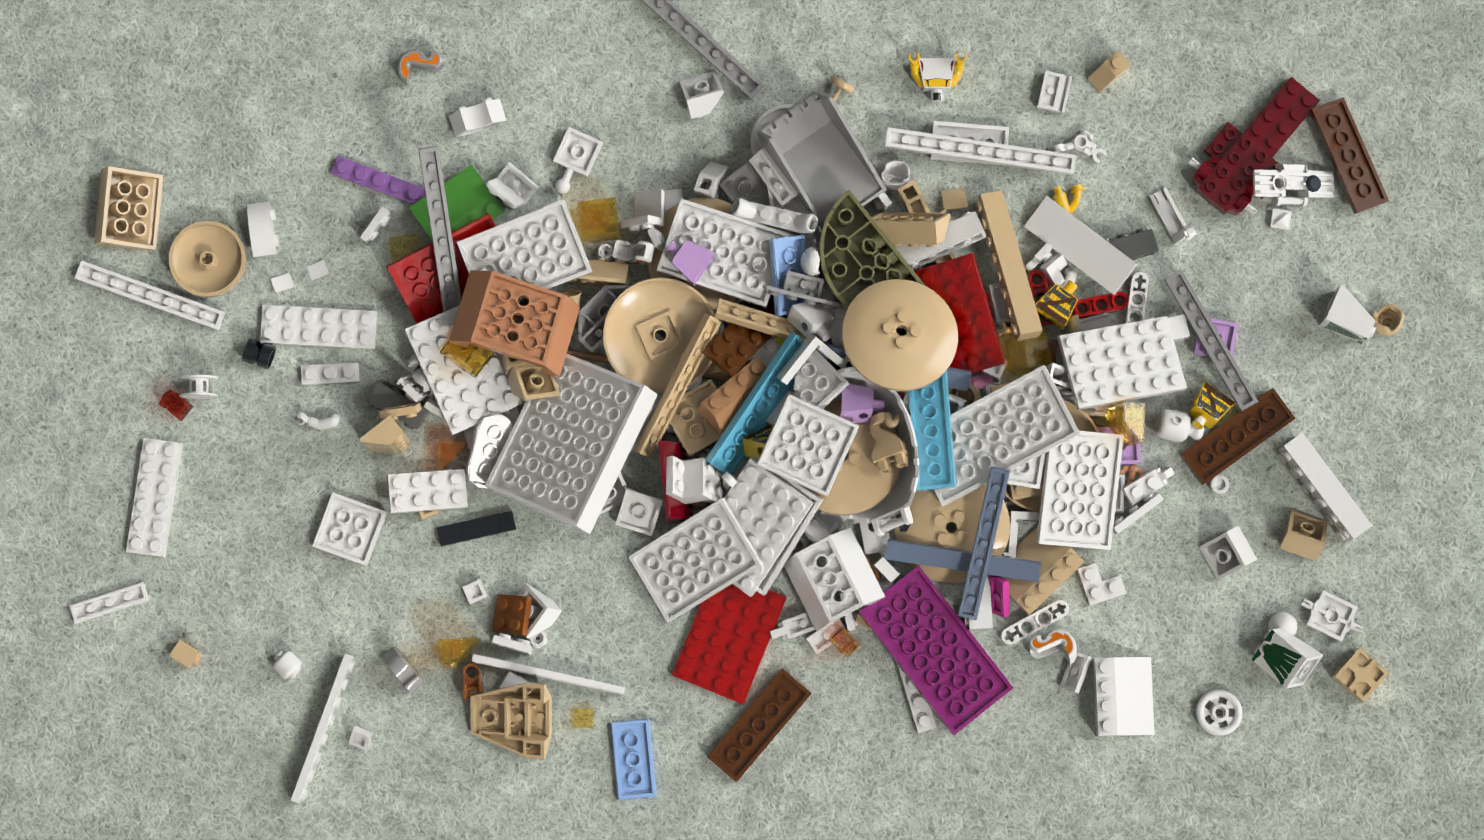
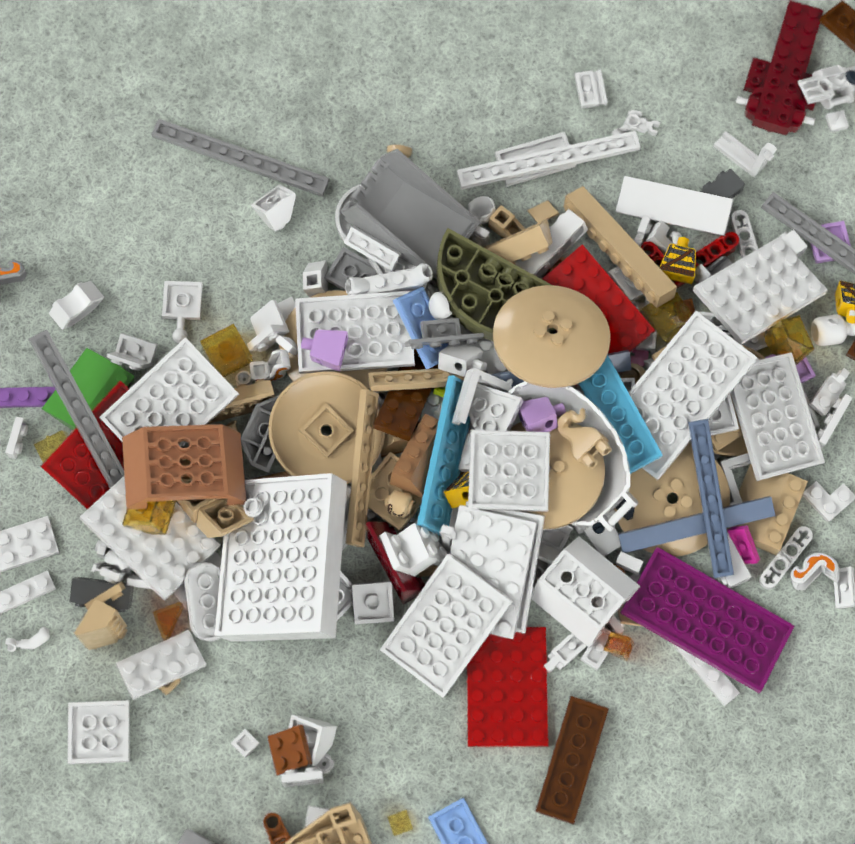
camera: 20 degrees left, 10 degrees down
(455, 650) = (249, 806): clear yellow slope -> none
(476, 528) = (222, 682): black tile -> none
(548, 674) = (348, 794): white tile -> none
(563, 384) = (253, 507): none -> white plate
(699, 433) = (400, 504): none -> tan head
(936, 74) = (480, 111): torso -> none
(1061, 198) = (647, 163): yellow plant -> none
(1109, 71) = (631, 53): tan slope -> none
(1132, 470) = (810, 385): nougat piece -> none

